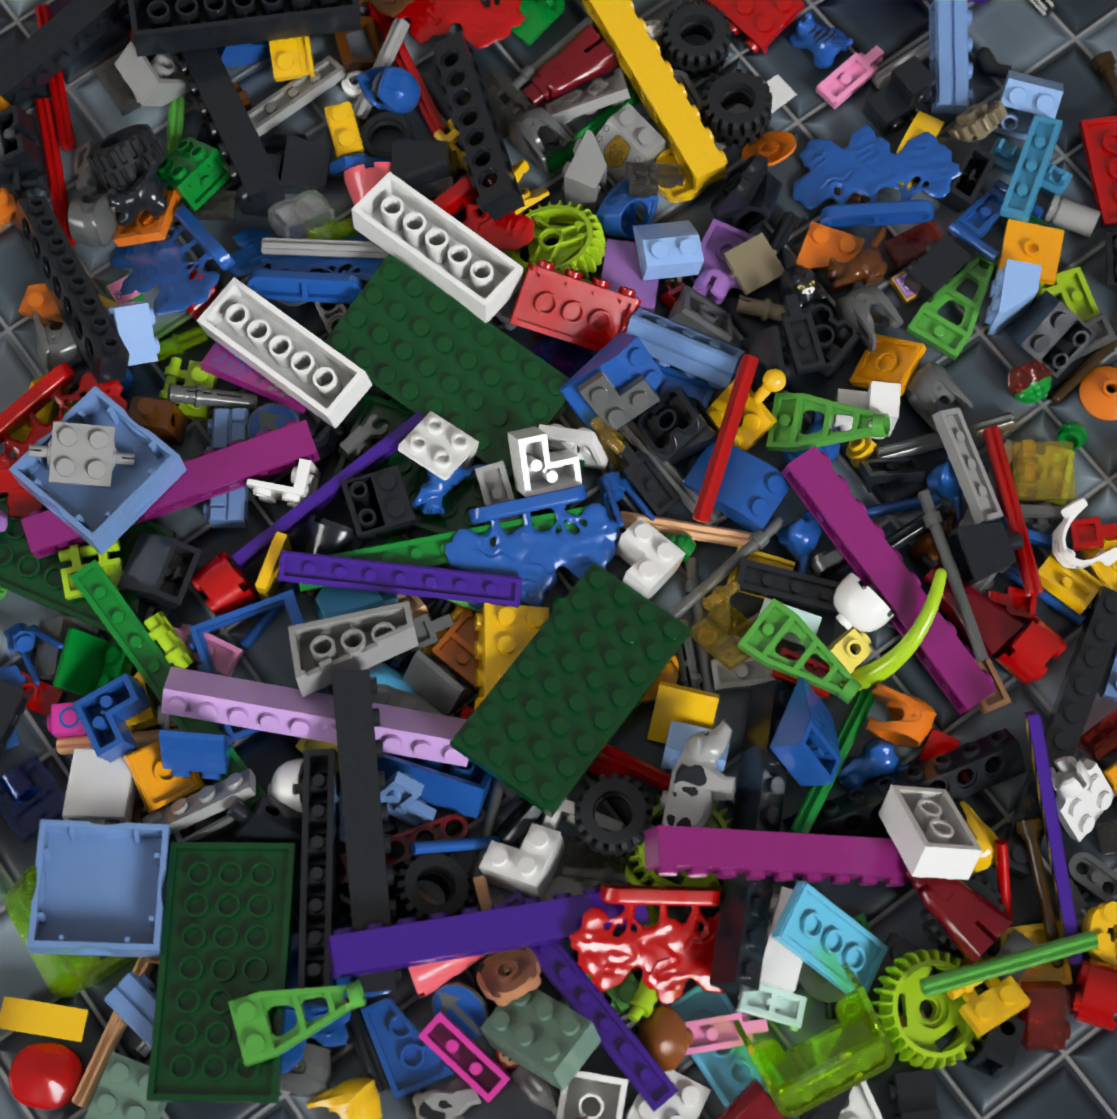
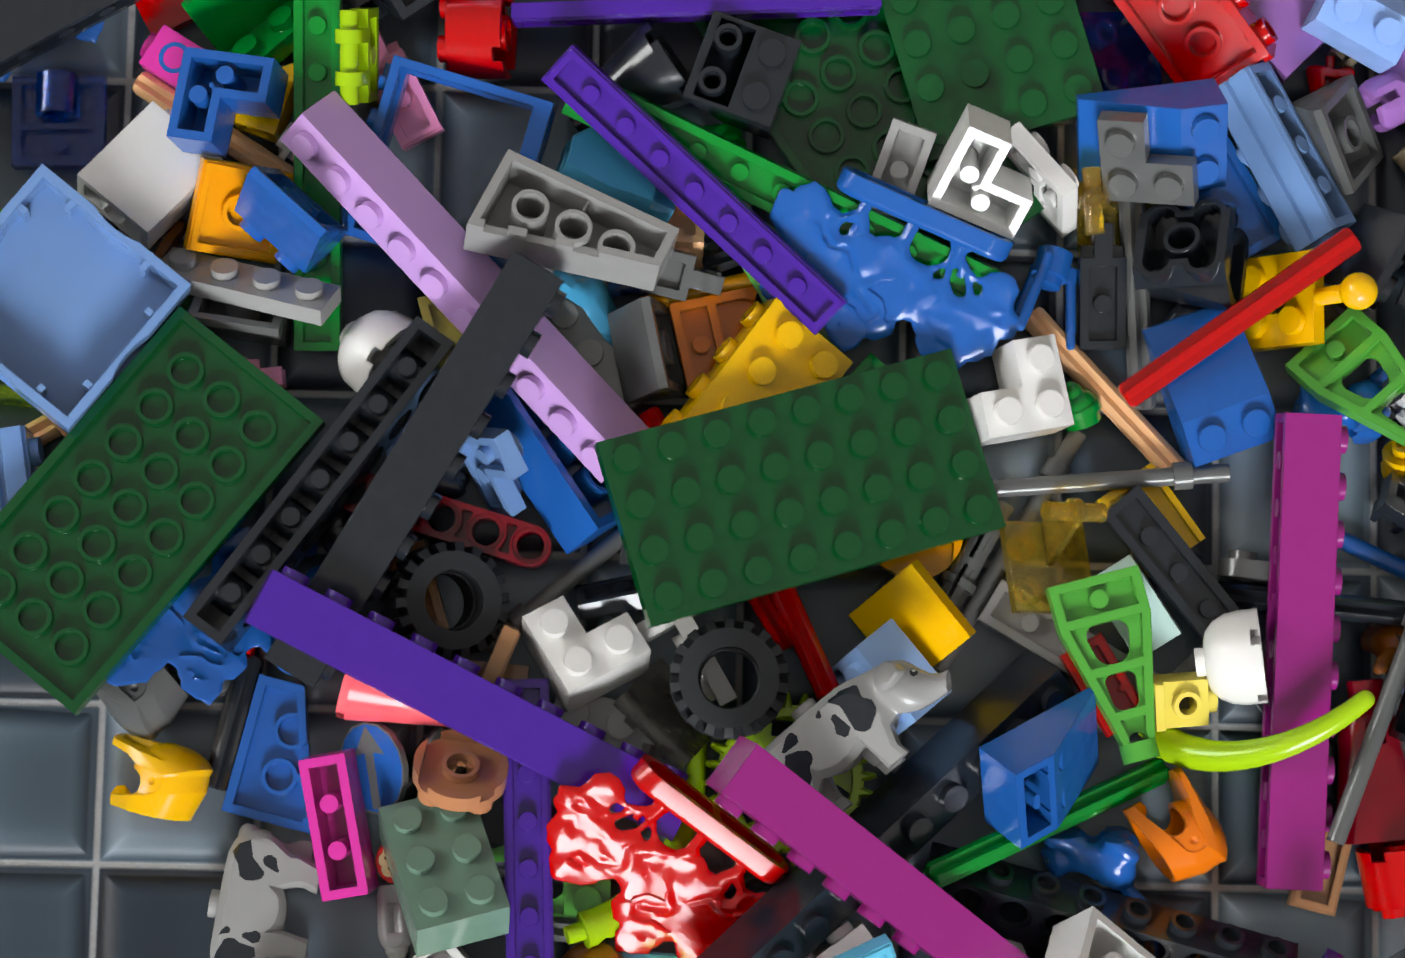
camera: 35 degrees right, 10 degrees up
(254, 1027) = (111, 606): bright green plate -> none
(264, 620) = (494, 112): blue bar -> none
(266, 822) = (309, 368): black torso -> none
(267, 578) = (533, 65): yellow tile -> none
(432, 492) = (846, 98): blue animal -> none
(439, 446) = (870, 56): white bracket -> none
(452, 845) = (512, 566): blue bar -> none
(801, 538) = (1235, 515): blue animal -> none
(937, 744) = (1198, 898): red slope -> none

